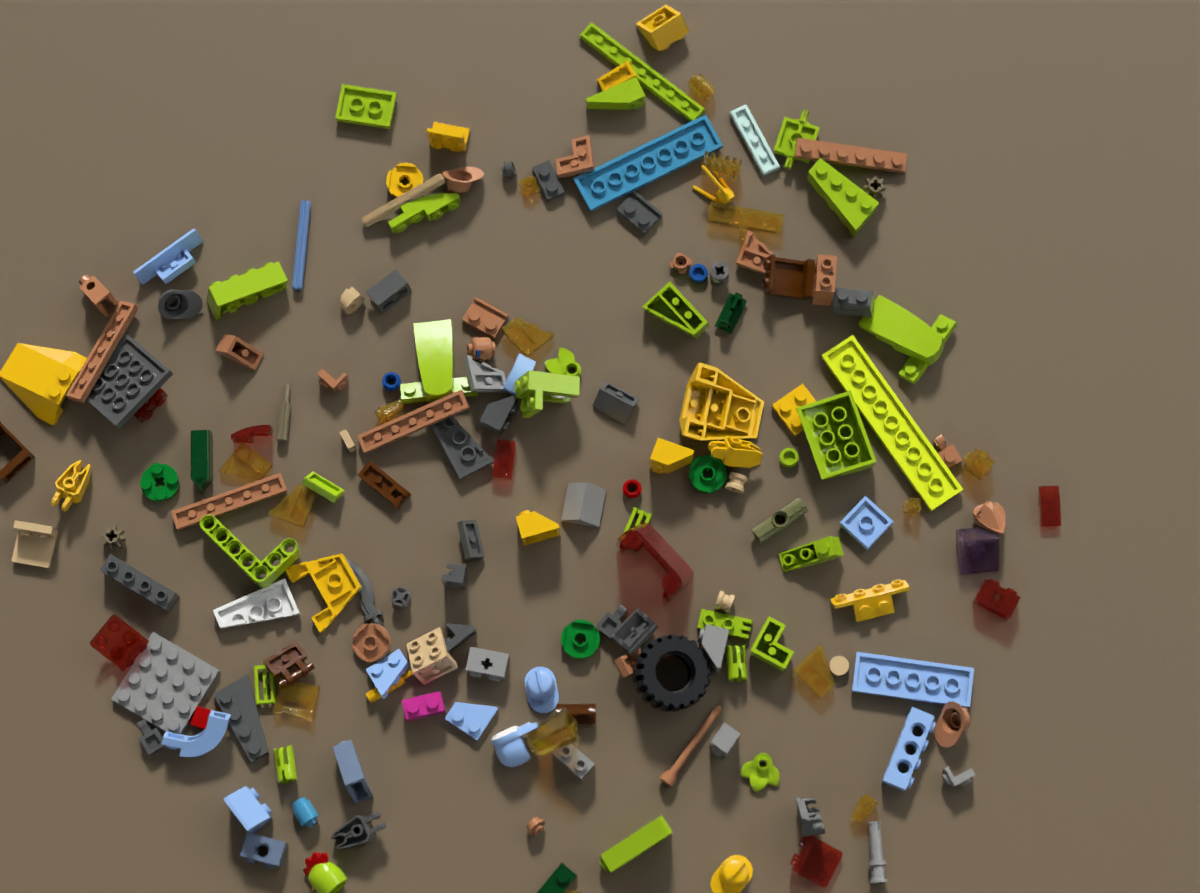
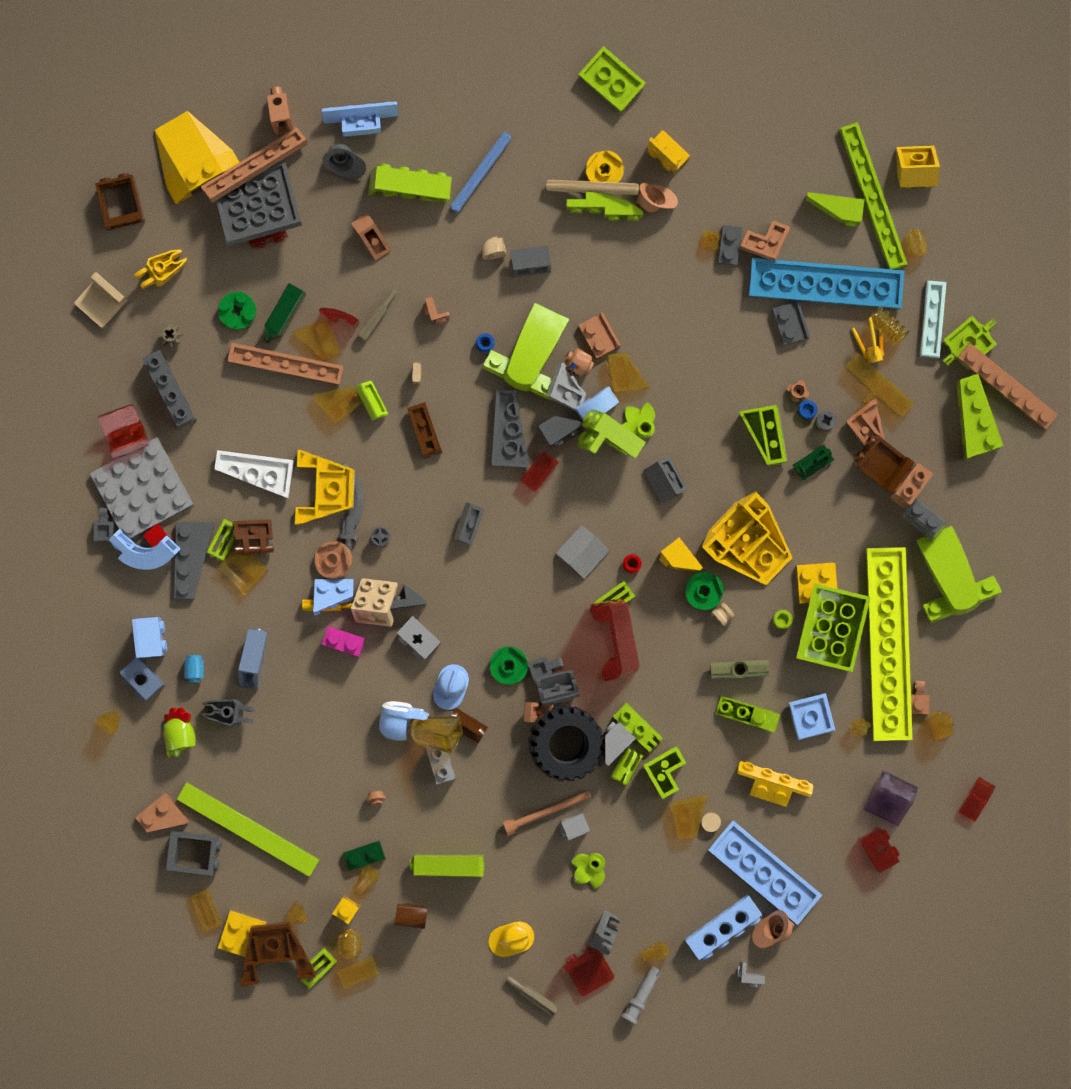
camera: 30 degrees right, 10 degrees up
(244, 555) = (270, 420): lime beam -> none
(285, 764) = (201, 618): lime arm -> none
(388, 411) = (467, 368): clear yellow cone -> none
(413, 421) = (481, 391): nougat plate -> none
(457, 577) = (438, 551): dark grey hinge -> none
(471, 717) = (377, 674): light blue wing -> none
(509, 169) = (701, 214): dark grey plate -> none
(535, 527) = (528, 548): yellow slope -> none
(617, 76) = (848, 188): yellow plate -> none
(724, 602) = (648, 709): tan wheel -> none
(736, 452) = (739, 588): yellow hinge -> none
(878, 185) = (1015, 426): dark tan gear -> none
(990, 517) = (919, 778): nougat piece -> none

